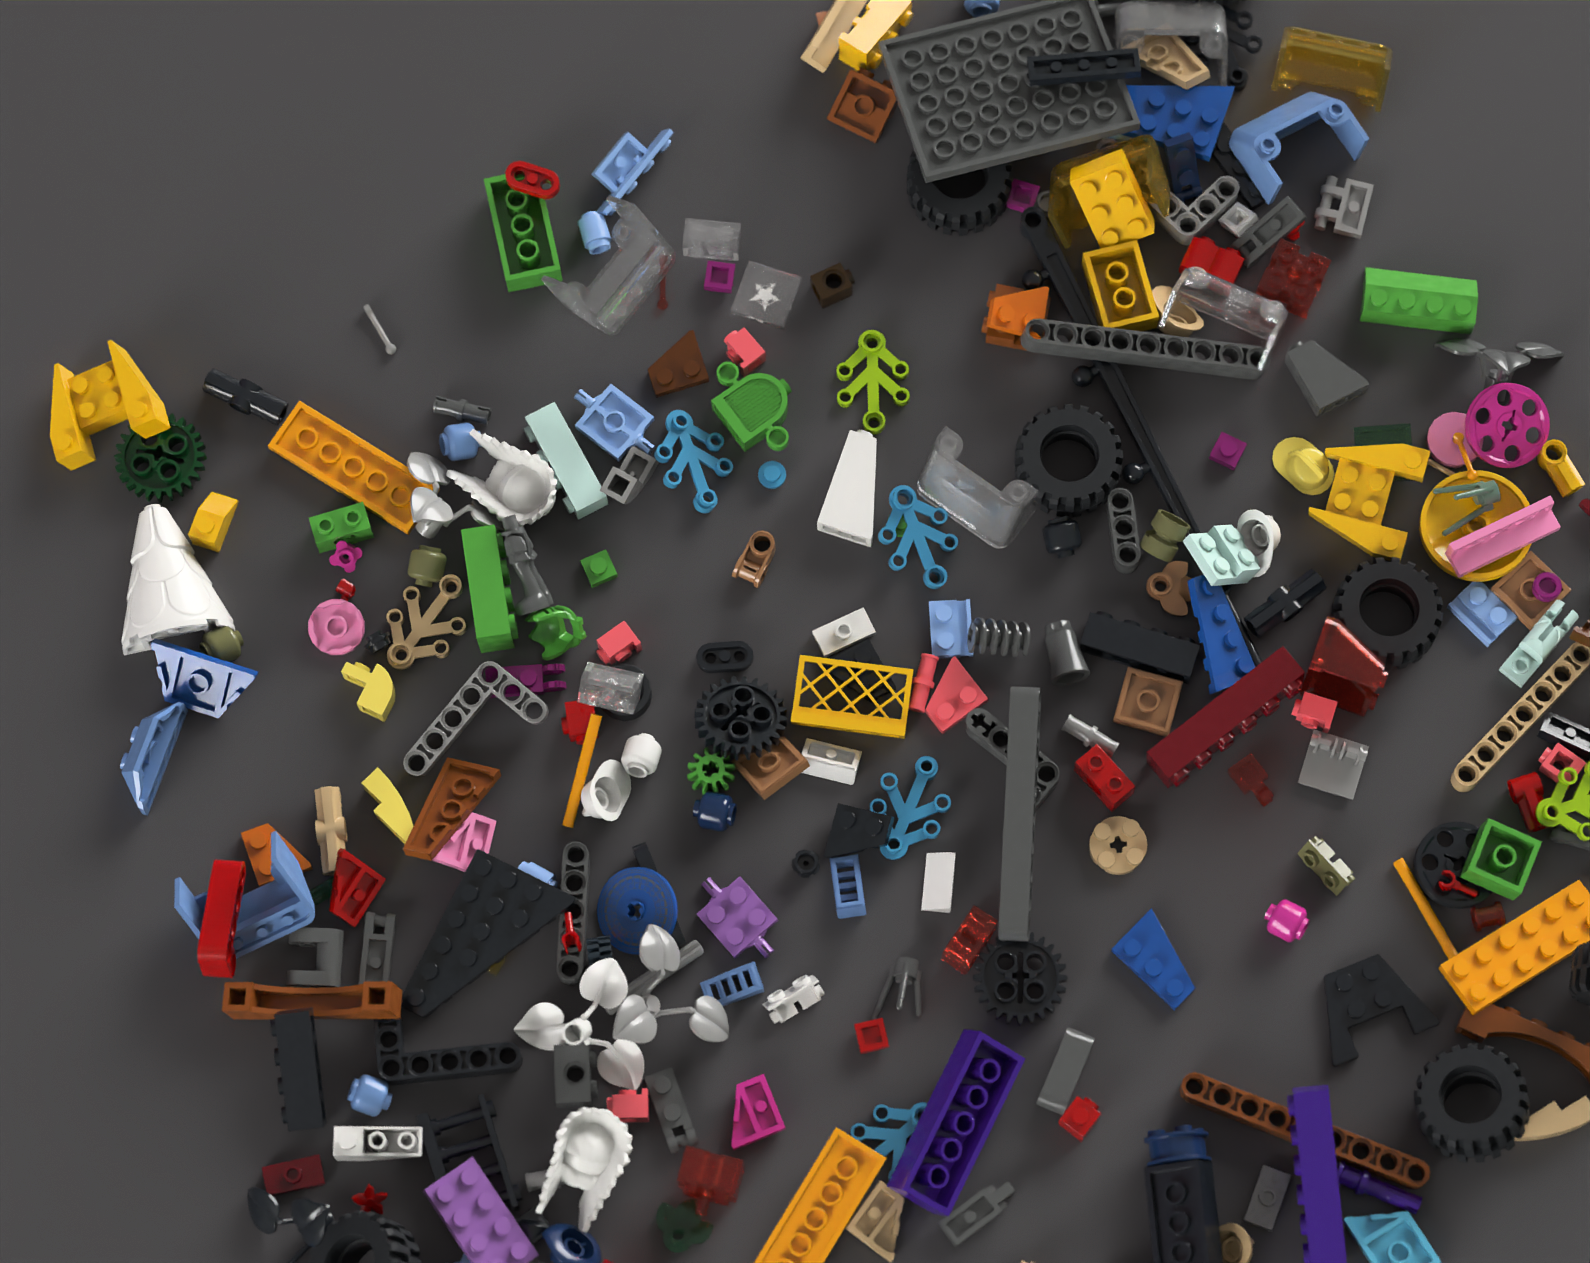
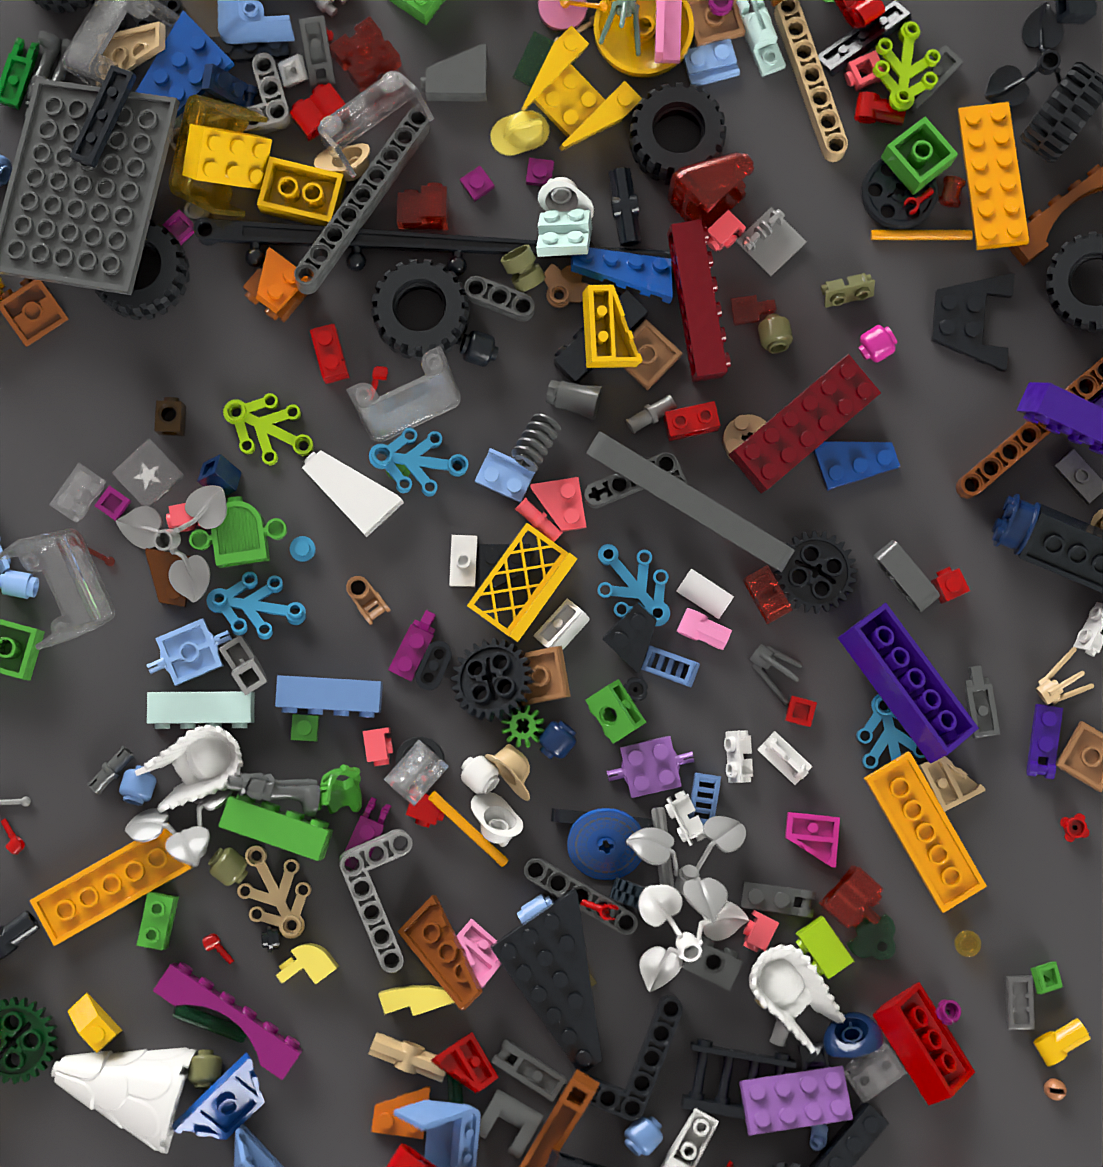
camera: 65 degrees left, 10 degrees up
(268, 628) = (209, 1023): none -> clear green axle
(272, 698) = (184, 988): none -> magenta arch
(336, 627) = (239, 966): bright pink tile -> none
(345, 548) = (181, 922): dark pink plate -> none
(346, 361) = (16, 844): none -> red hand
(642, 571) = (329, 694): none -> medium blue brick
(646, 1176) = (824, 947): none -> lime brick
(666, 781) = (513, 768): none -> tan piece
(708, 965) = (680, 809): none -> white hinge
(709, 318) = (142, 526): none -> light grey plant
(734, 628) = (413, 647): none -> magenta hinge
(773, 852) = (617, 698): none -> bright green brick
(799, 360) = (220, 473): none -> dark blue panel
(816, 1044) = (785, 758): none -> white hinge
(901, 891) = (699, 627): none -> bright pink piece
(977, 399) = (329, 353): none -> red brick
(984, 456) = (379, 373): none -> red hand
(1142, 643) = (605, 329): none -> yellow wedge
(1163, 887) = (804, 423): none -> dark red brick
(1171, 412) = (425, 209): none -> clear red brick
(1240, 814) = (775, 333): none -> olive head
(1274, 503) = (539, 171): none -> magenta plate

